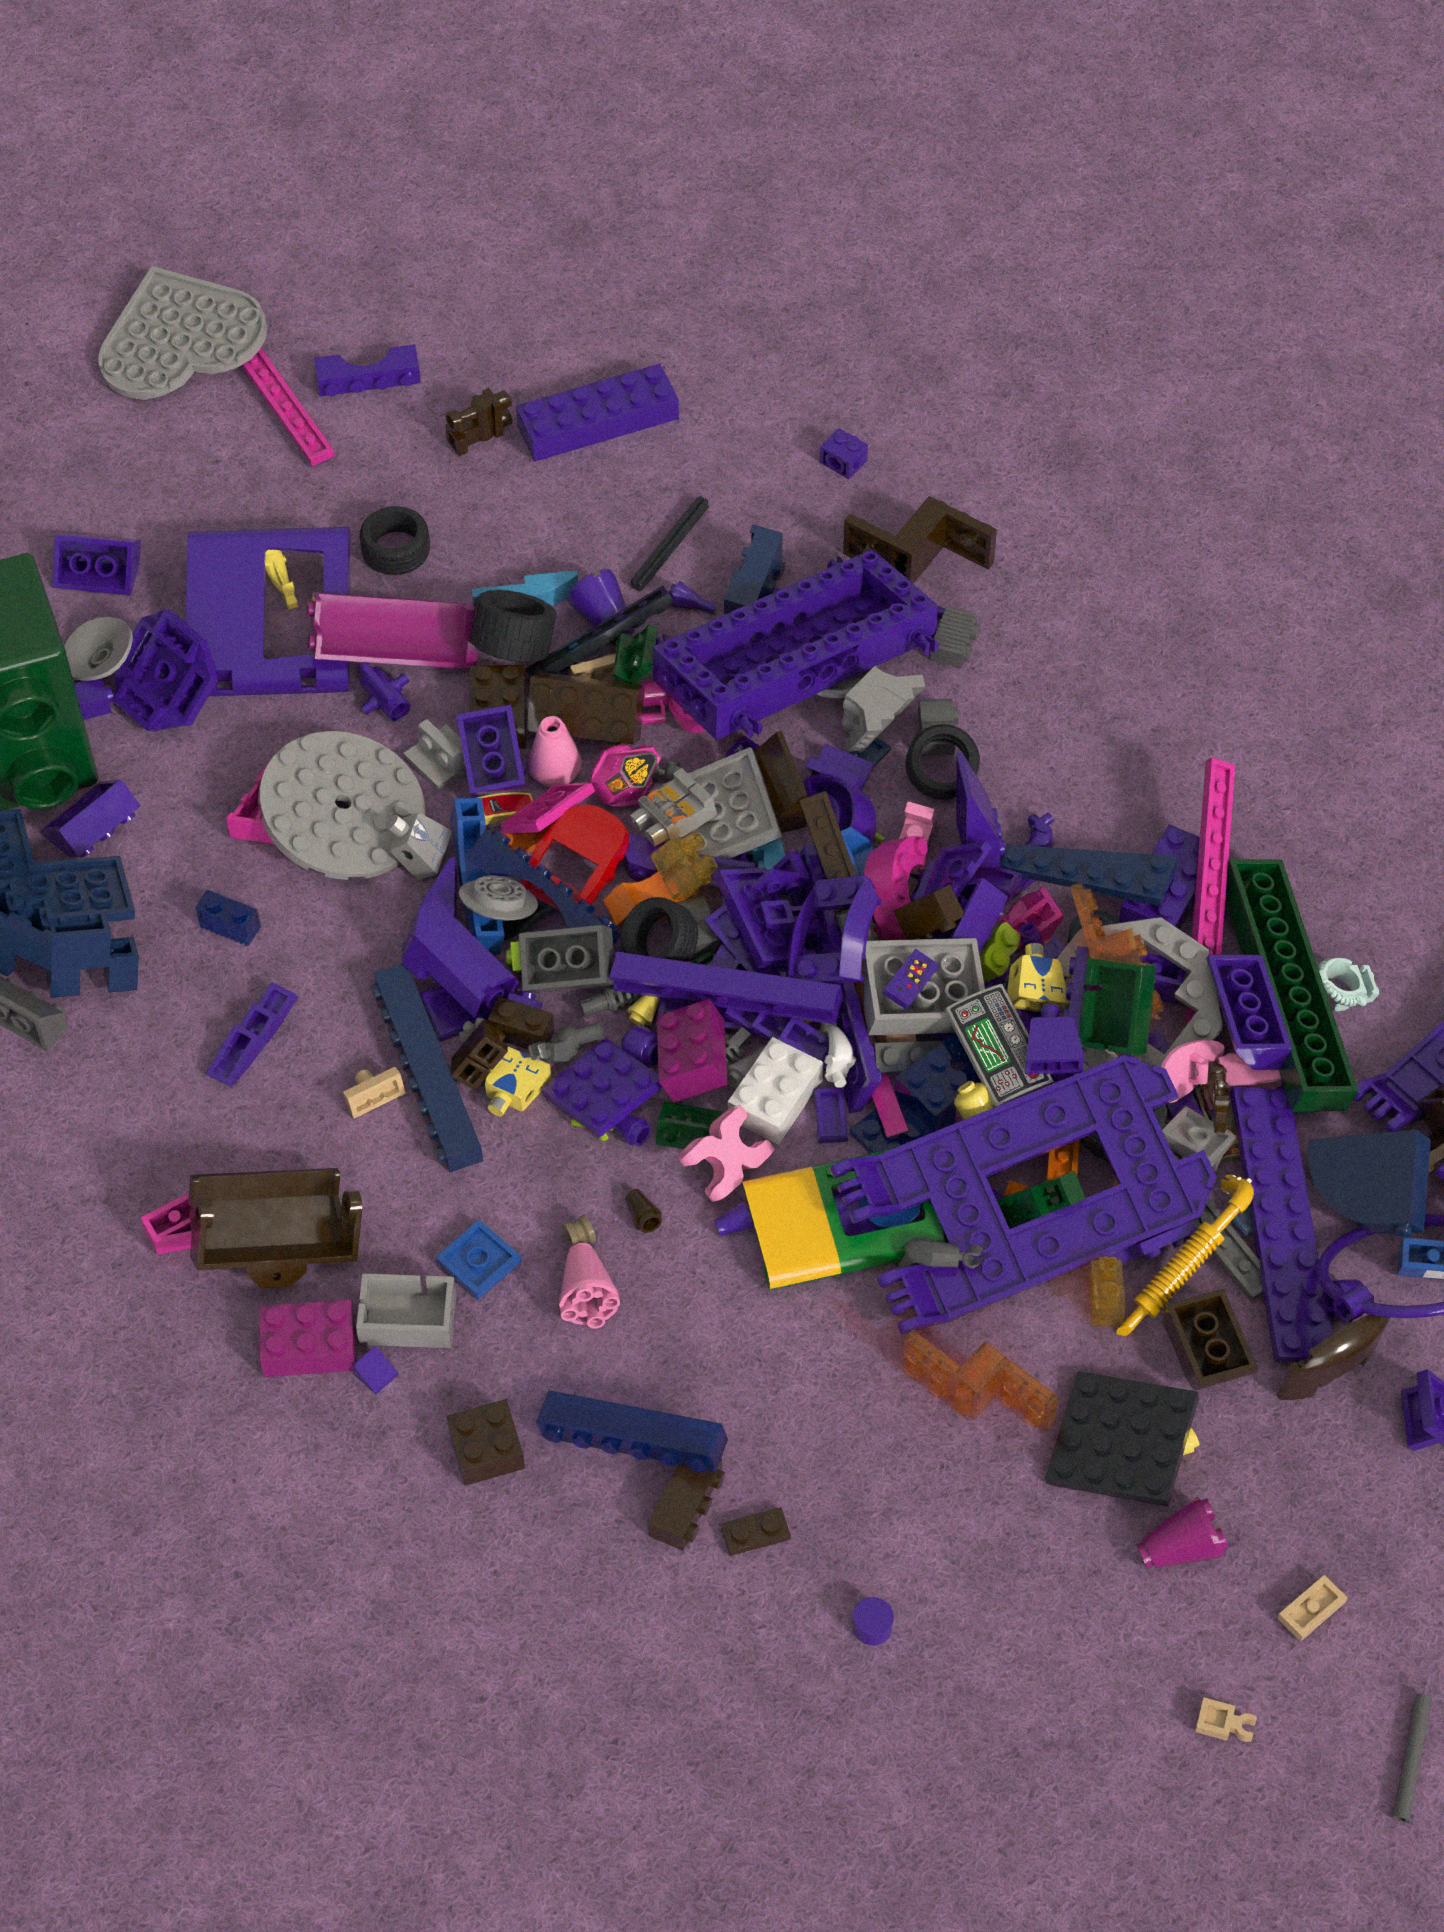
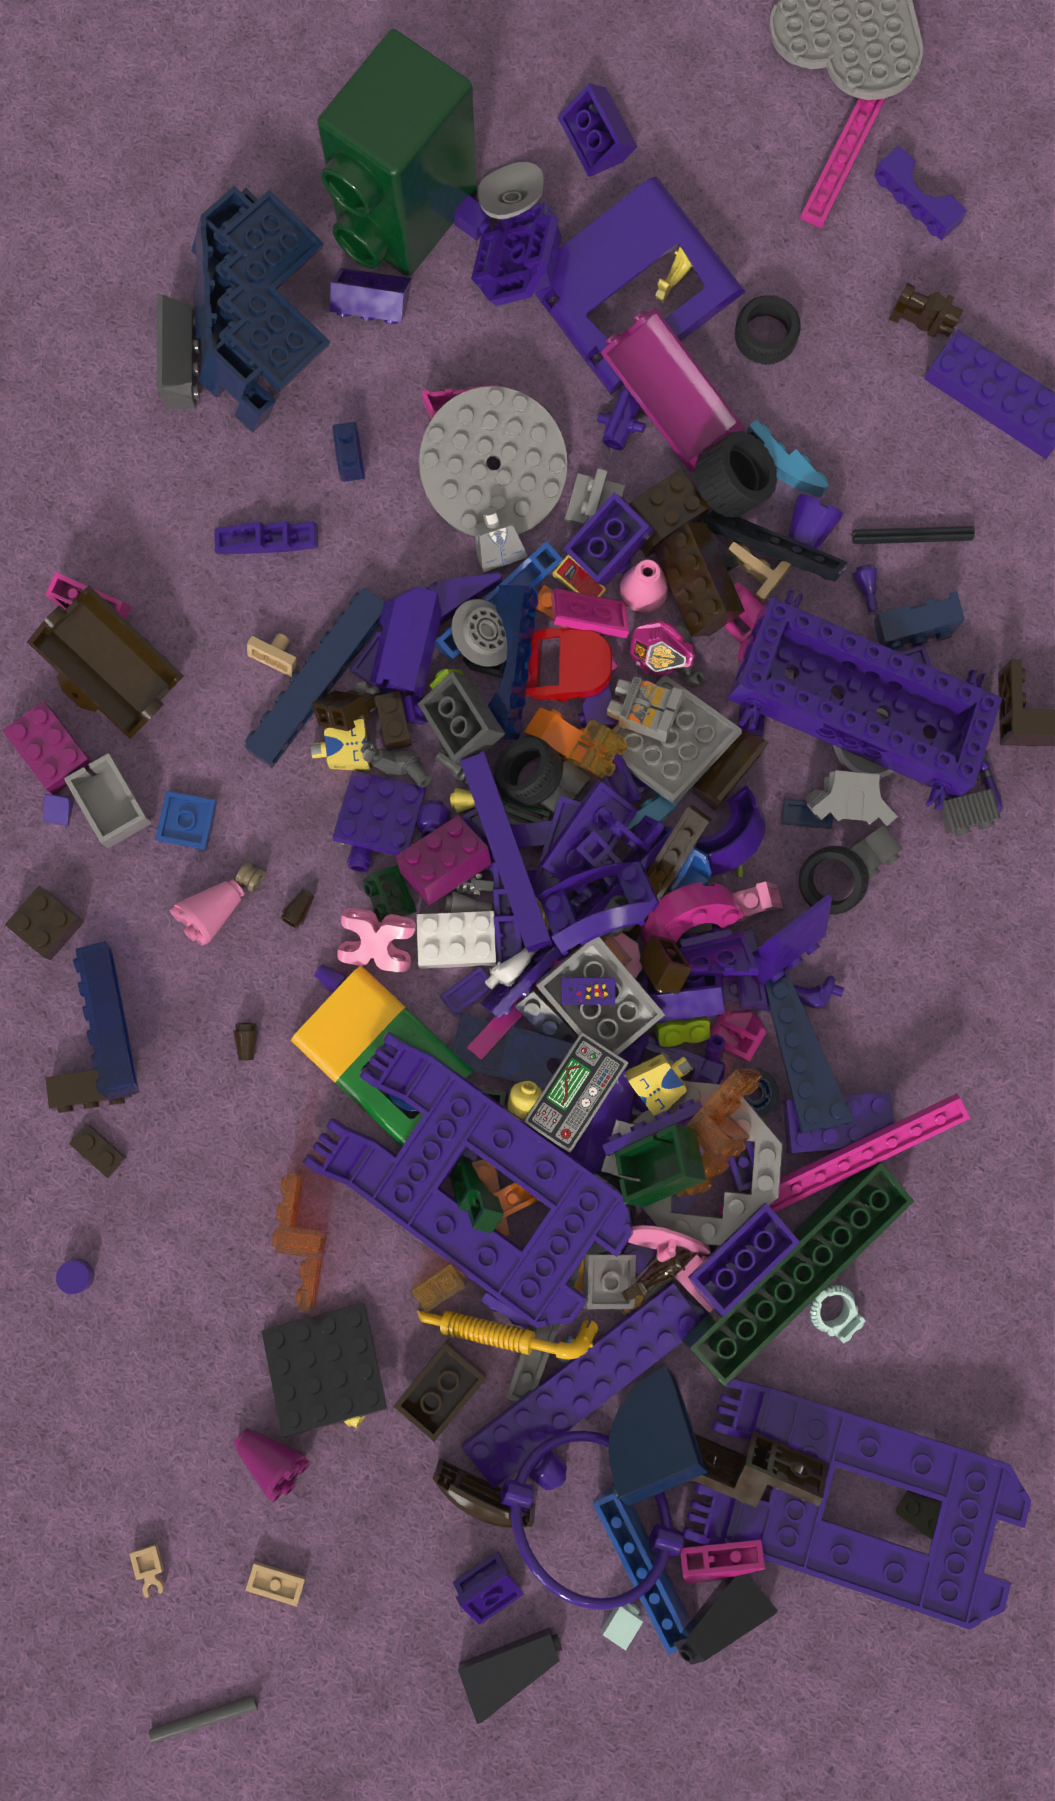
camera: 55 degrees right, 25 degrees up
(635, 656) = (768, 583): dark green bracket -> none
(740, 1329) = (245, 1040): none -> dark brown cone
(841, 765) = (780, 804): dark purple panel -> none
(938, 1254) = (378, 1146): dark grey arm -> none
(1053, 1044) = (594, 1136): dark purple torso -> none

